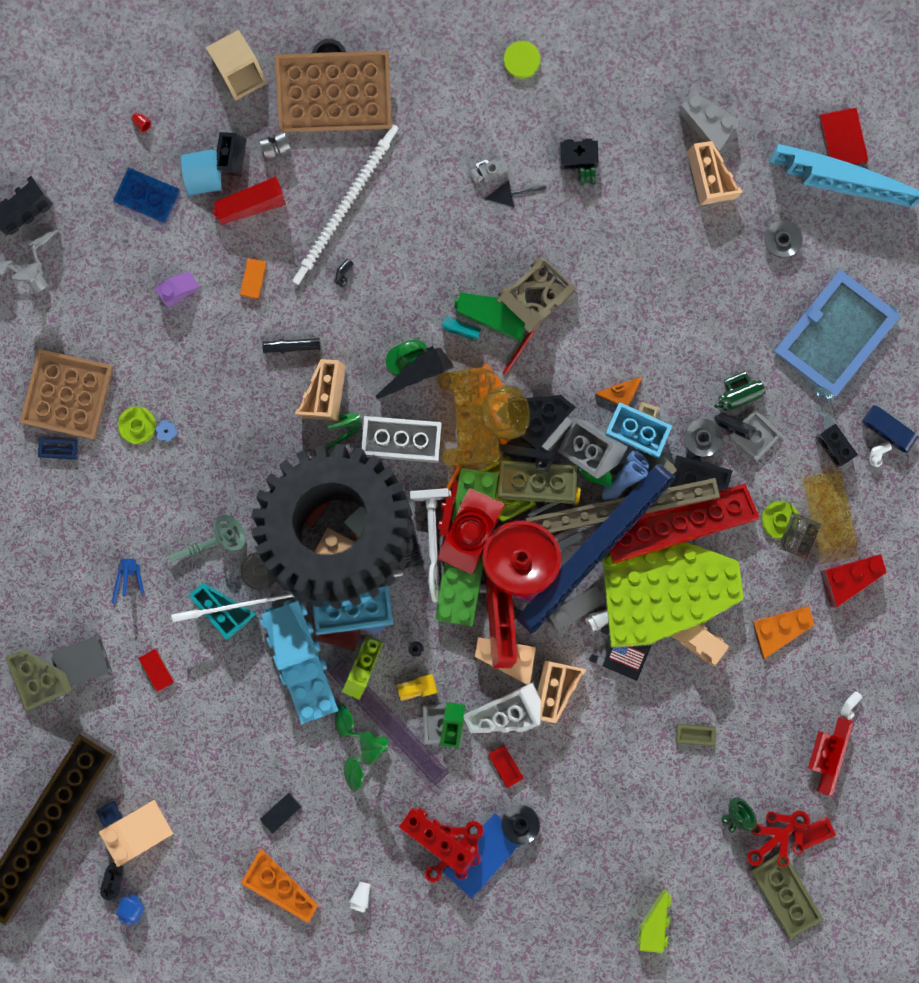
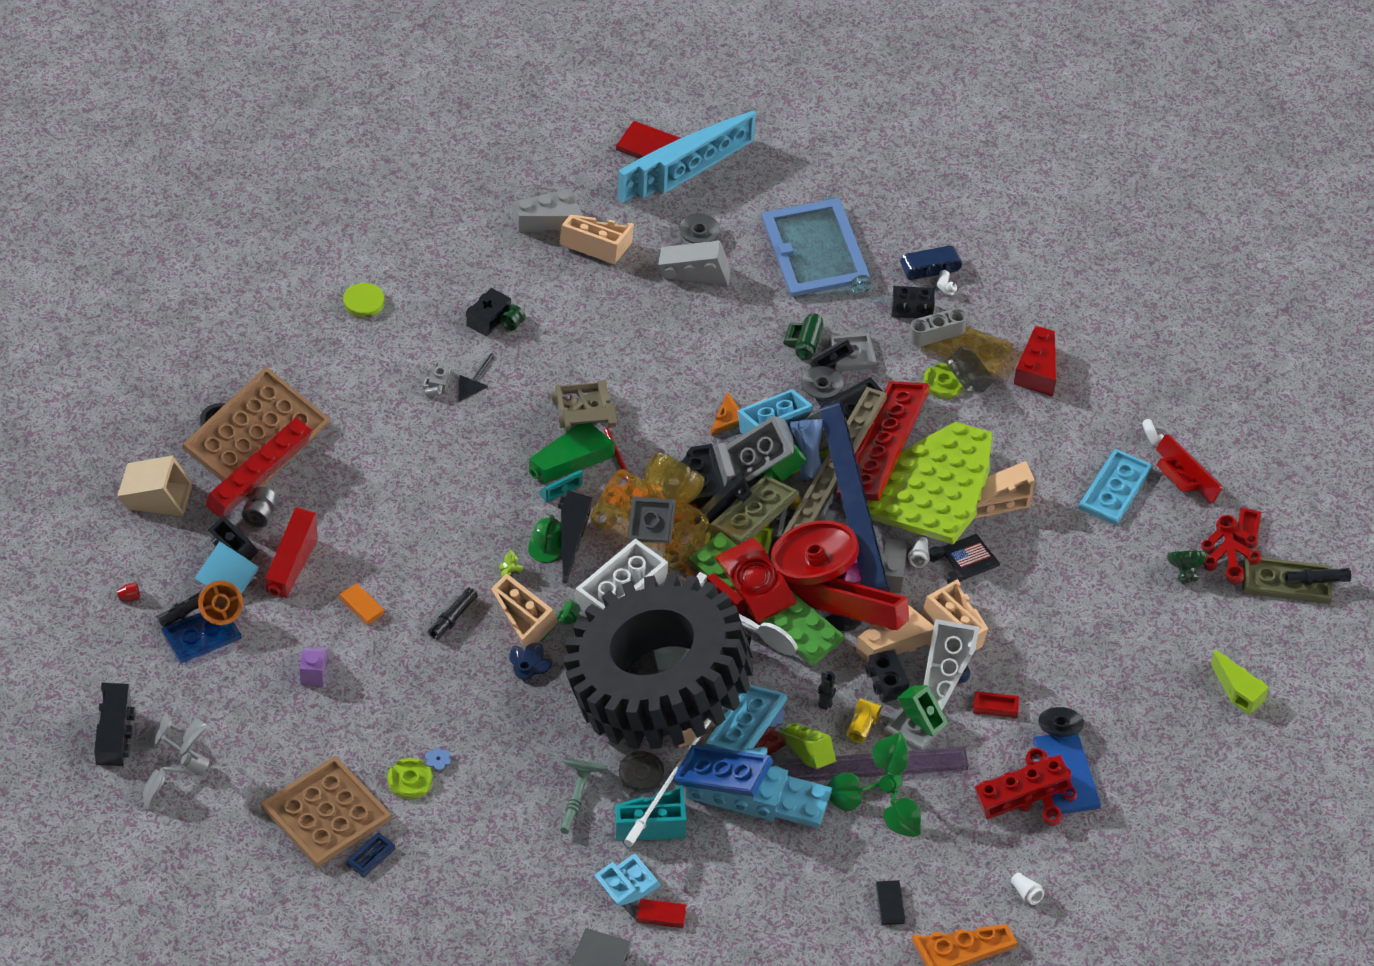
camera: 55 degrees left, 35 degrees down
(126, 568) = (542, 870): blue plant -> none
(150, 168) = (179, 610): none -> black pin
(160, 631) = (627, 881): none -> medium azure slope
(164, 192) = (220, 602): none -> orange cylinder
(278, 637) = (723, 770): none -> blue tile
(294, 427) = (529, 658): none -> dark blue plate
(300, 120) = (258, 467): none -> red brick
(307, 263) = (364, 497): white hose -> none
(341, 271) = (422, 535): black arm -> none
(362, 351) = (510, 564): none -> lime plant
(462, 423) = (651, 520): none -> dark grey tile
(471, 679) = (887, 675): none -> black brick
(695, 734) = (1086, 553): olive tile -> none
(744, 263) = (695, 263): none -> light grey wedge
(777, 713) = (1115, 487): none -> medium azure tile
(781, 629) = (1042, 438): orange wing -> none
(793, 913) = (1311, 577): none -> black pin
(832, 483) = (937, 327): none -> light grey beam

